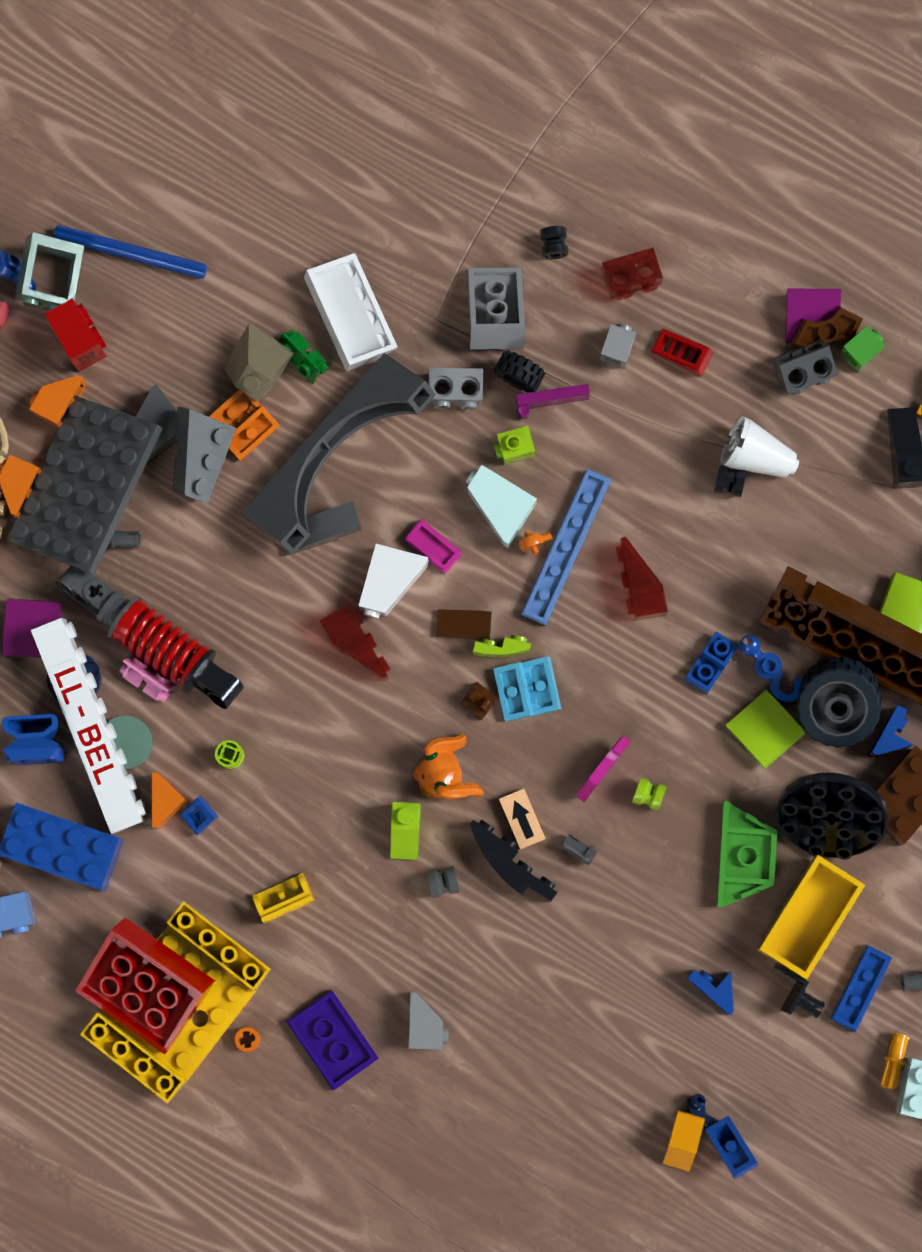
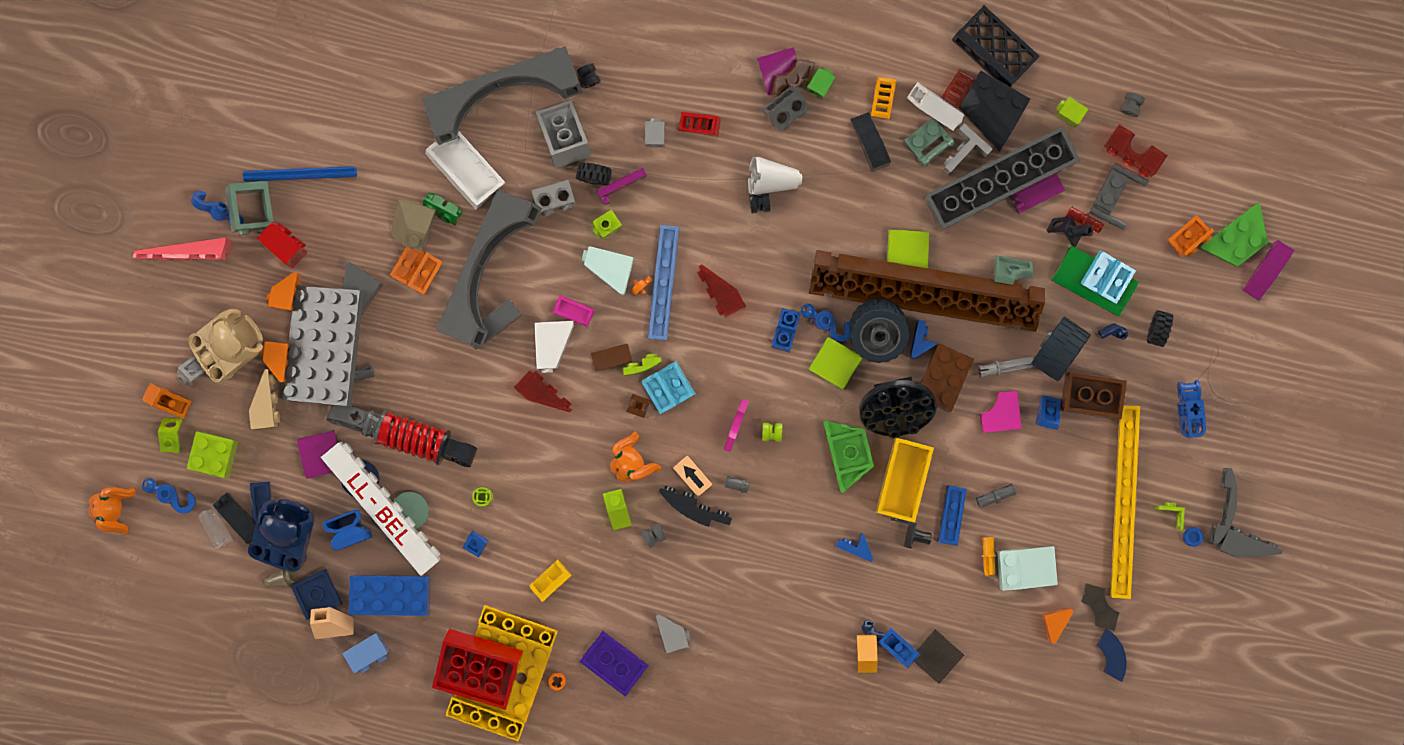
camera: 25 degrees left, 5 degrees up
(137, 671) = (401, 460): bright pink hinge -> none
(165, 801) = (449, 541): orange slope -> none
(200, 453) = (395, 300): wedge -> none
(358, 225) = (548, 70): none -> dark grey arch
(628, 267) = (645, 77): clear red brick -> none
(781, 1177) = (938, 656): none -> clear smoke tile

